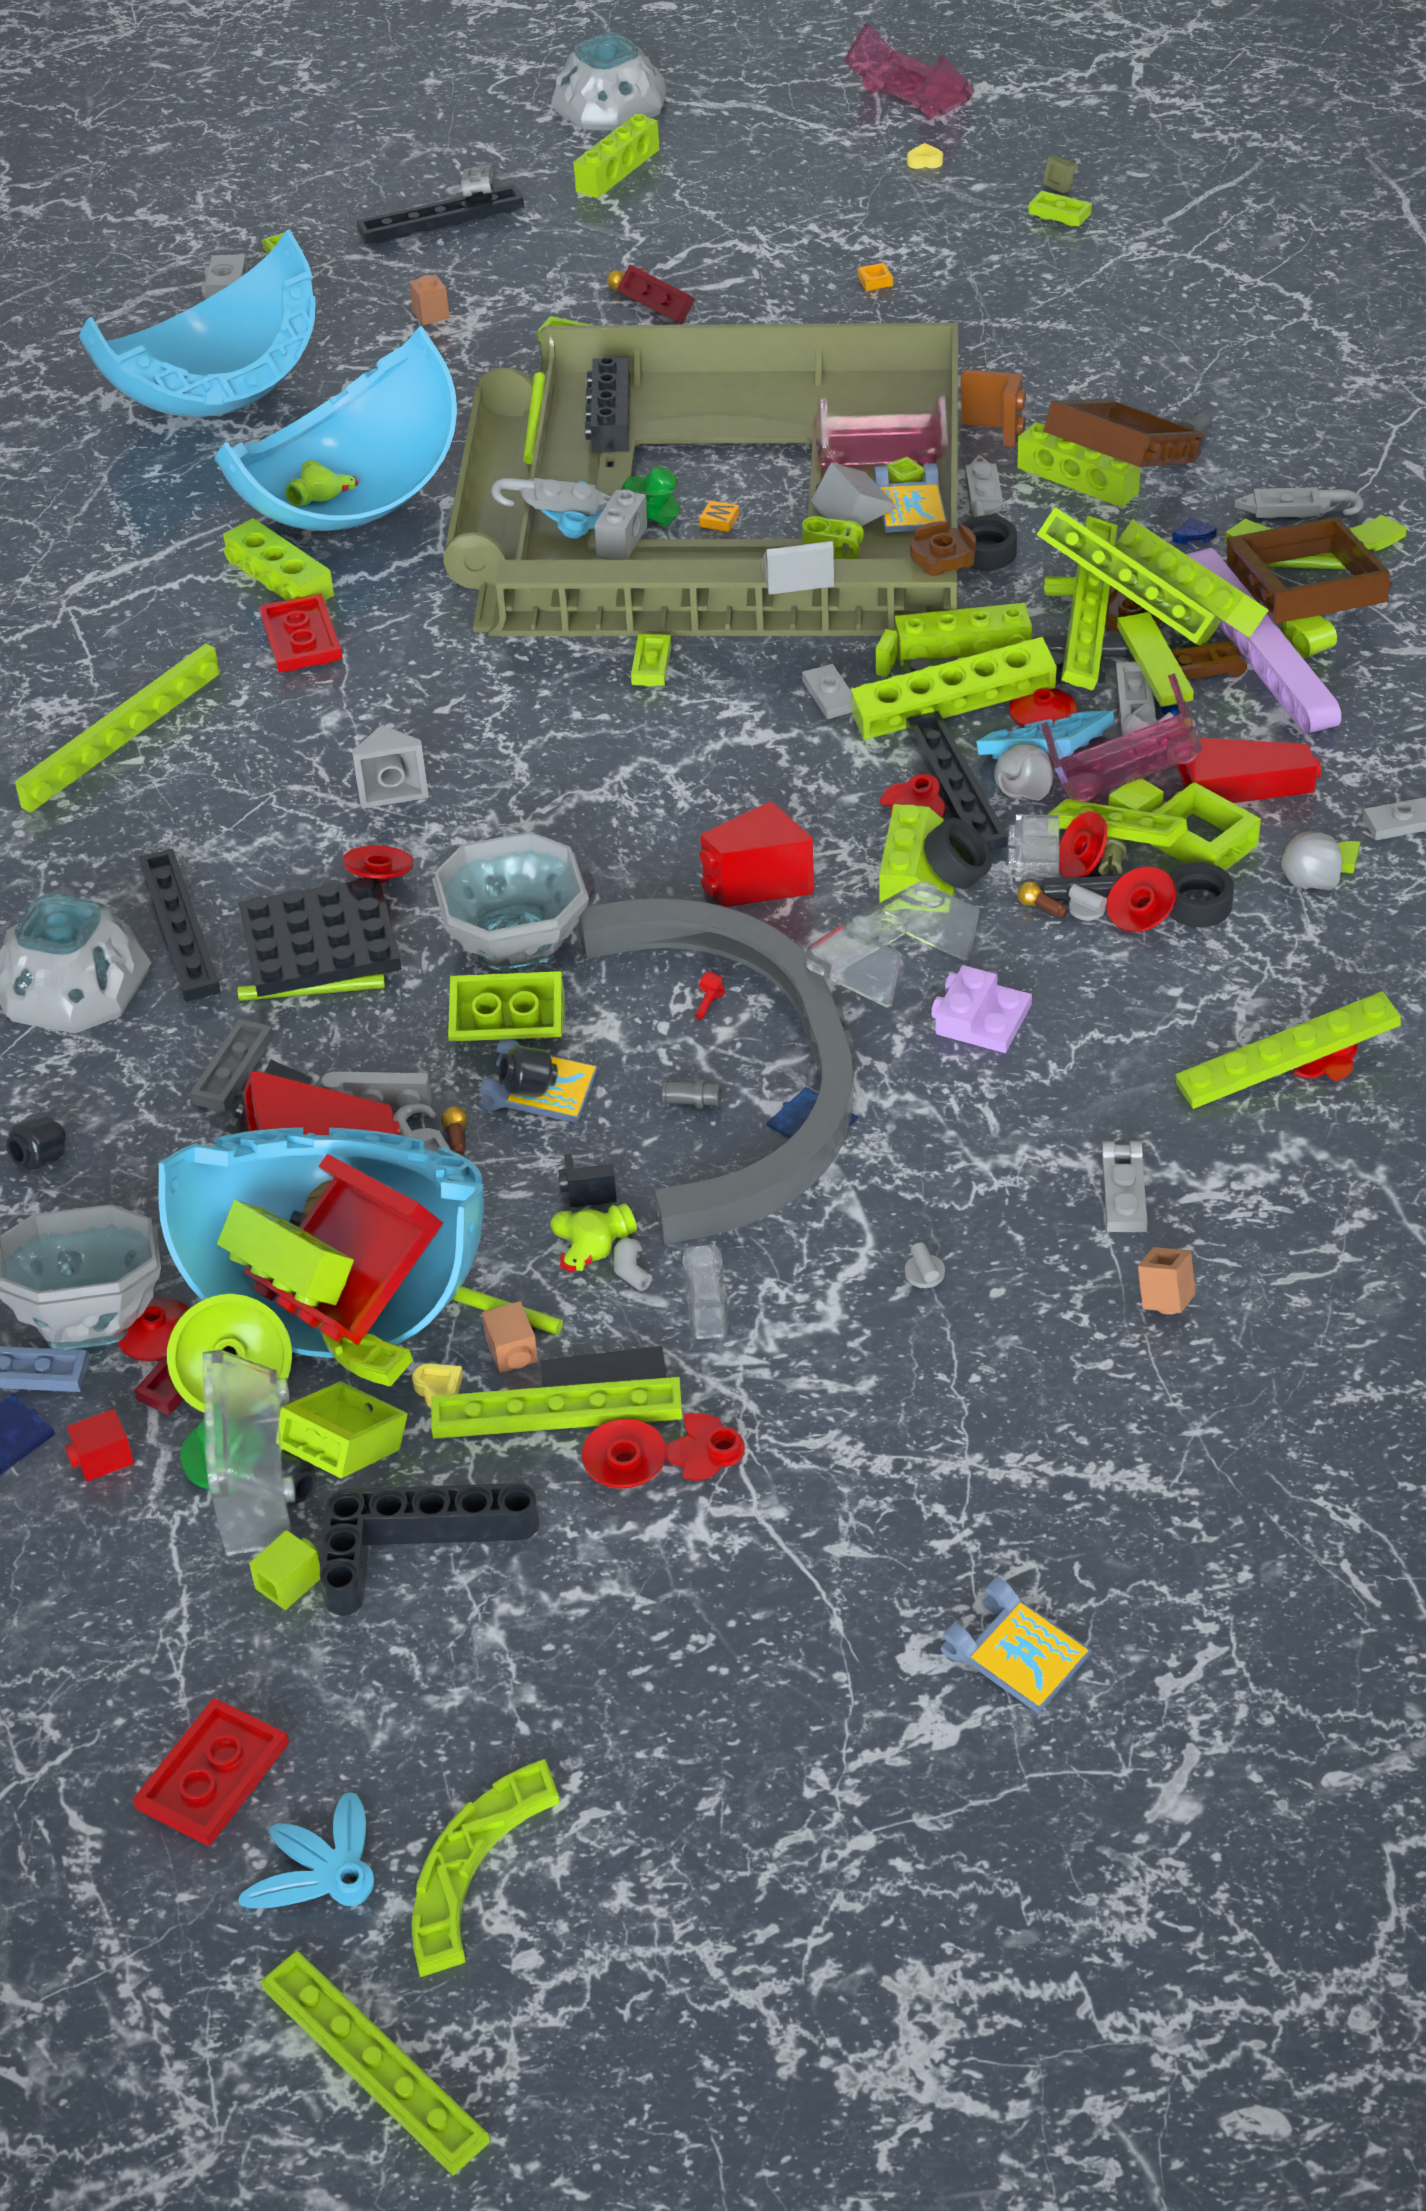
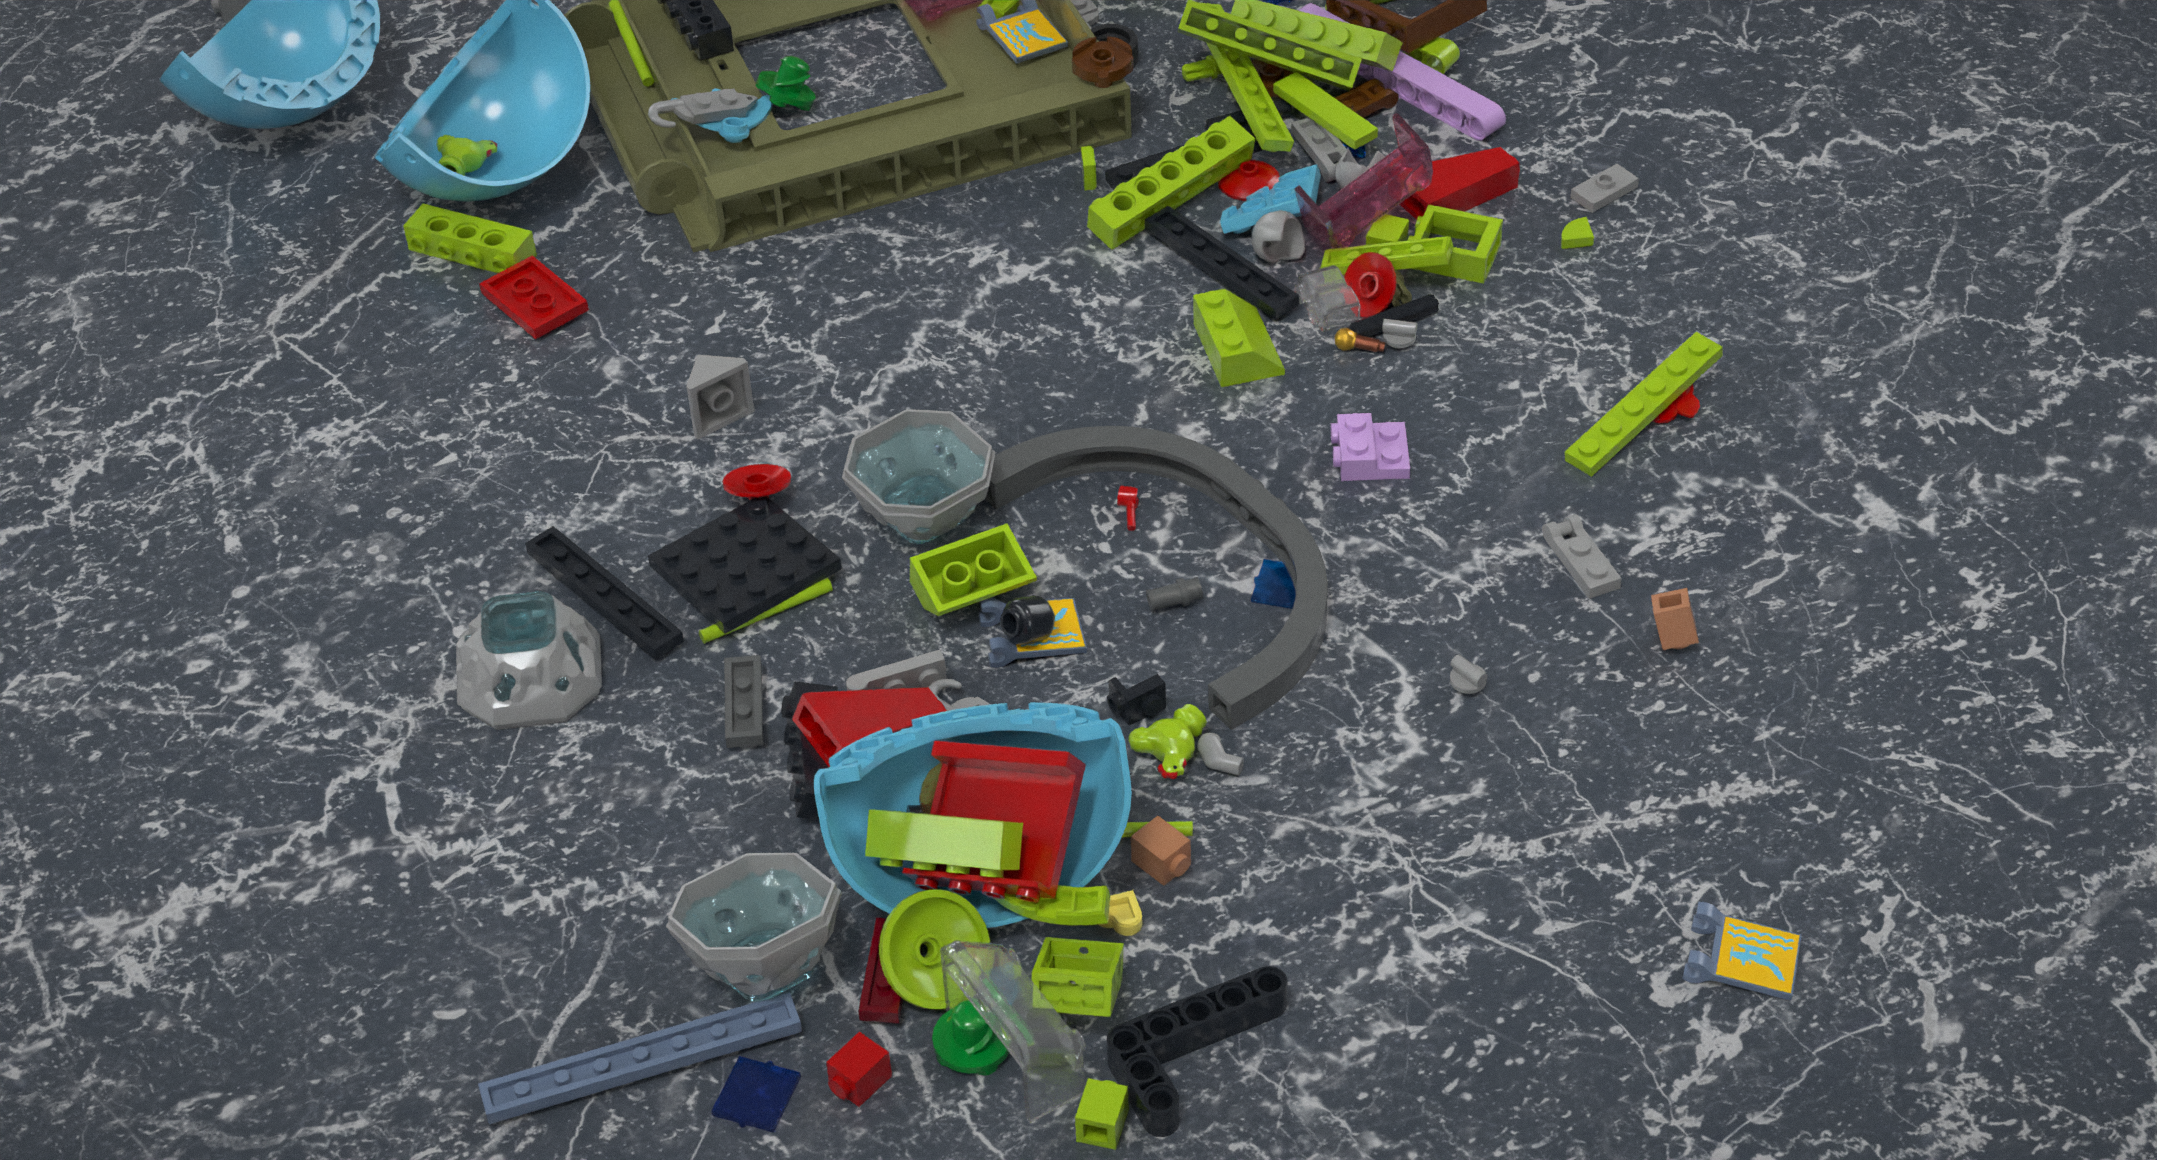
camera: 25 degrees left, 0 degrees up
(36, 1142) = (609, 827): black head -> none
(117, 728) = (417, 434): lime plate -> none
(151, 1332) = (842, 957): red dish -> none
(454, 1121) = (980, 685): piece -> none
(555, 1407) = (1238, 896): lime plate -> none
(604, 1367) = (1257, 853): black tile -> none
(621, 525) = (781, 118): light grey brick -> none
(623, 1441) = (1325, 912): red dish -> none
(651, 660) = (881, 231): lime plate -> none
(702, 1447) = (1384, 884): red plate -> none
(705, 1291) = (1303, 755): clear brick -> none
(719, 516) = (853, 88): light orange tile -> none
(757, 858) = (1105, 375): red slope -> none
(798, 567) = (990, 112): slope -> none
(820, 529) = (977, 80): lime piece -> none
(828, 690) = (1056, 215): light grey plate -> none
(850, 496) = (971, 43): light grey slope -> none
(857, 949) = (1248, 418): clear windscreen -> none
(911, 794) = (1186, 285): red plate -> none
(945, 860) = (1271, 321): black tyre -> none
(961, 631) = (1145, 132): lime brick -> none
(1133, 892) = (1442, 303): red dish -> none
(1207, 877) = (1486, 282): black tyre -> none
(1312, 861) = (1563, 243): light grey hair -> none

